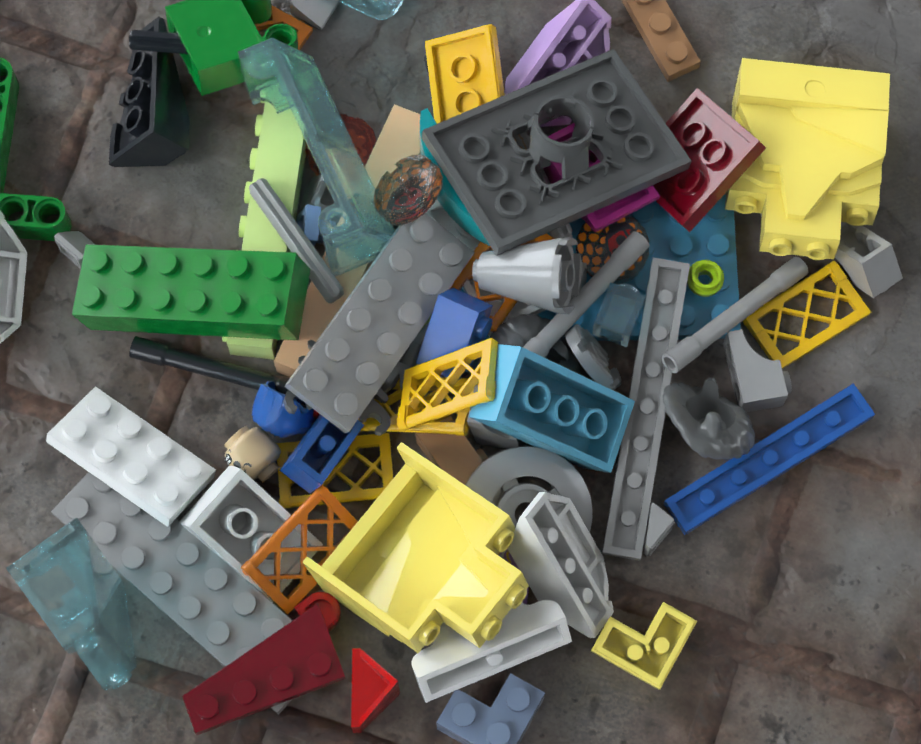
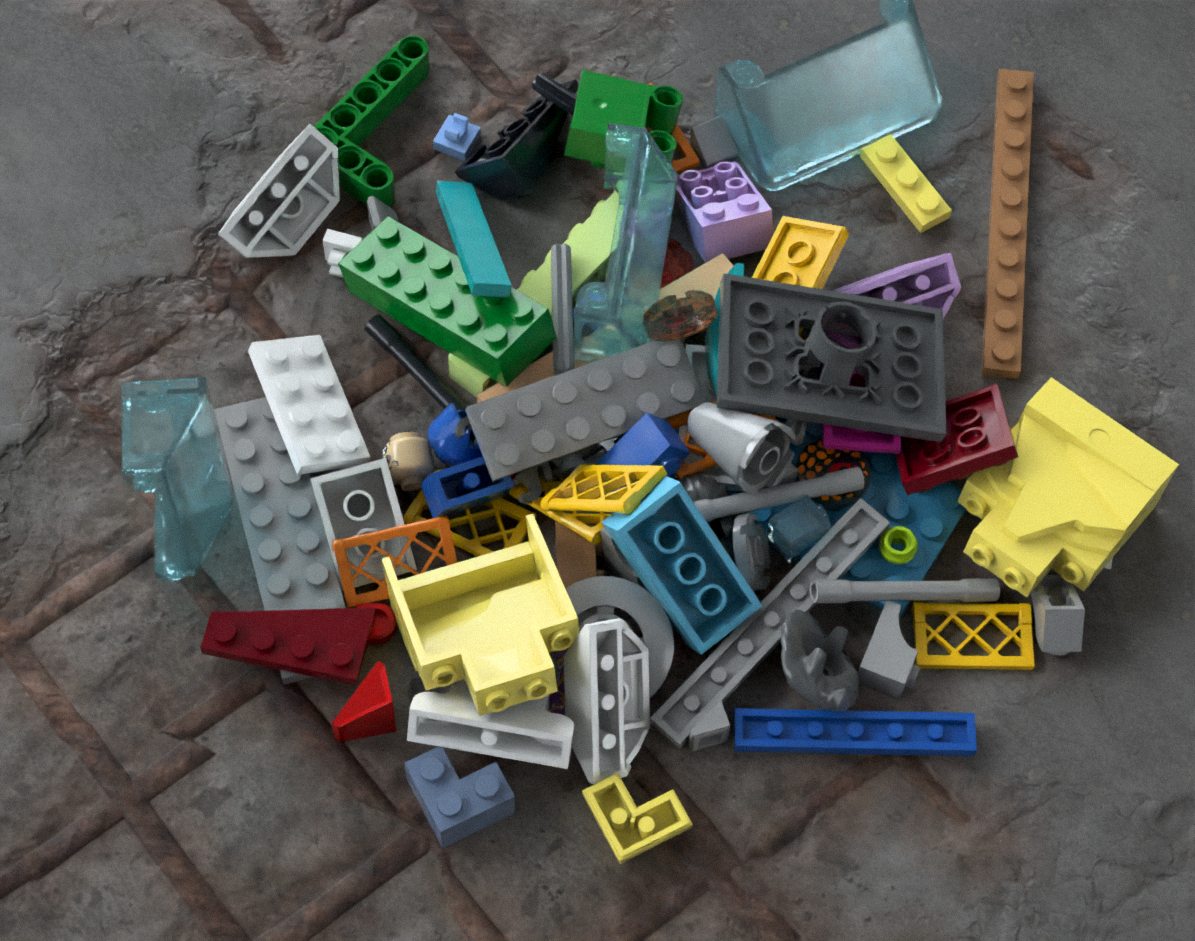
camera: 30 degrees right, 10 degrees down
(60, 298) = (336, 247): none -> white tile
(87, 130) = (457, 137): none -> light blue tile
(179, 223) = (473, 239): none -> teal tile
(366, 63) = (724, 211): none -> lavender slope

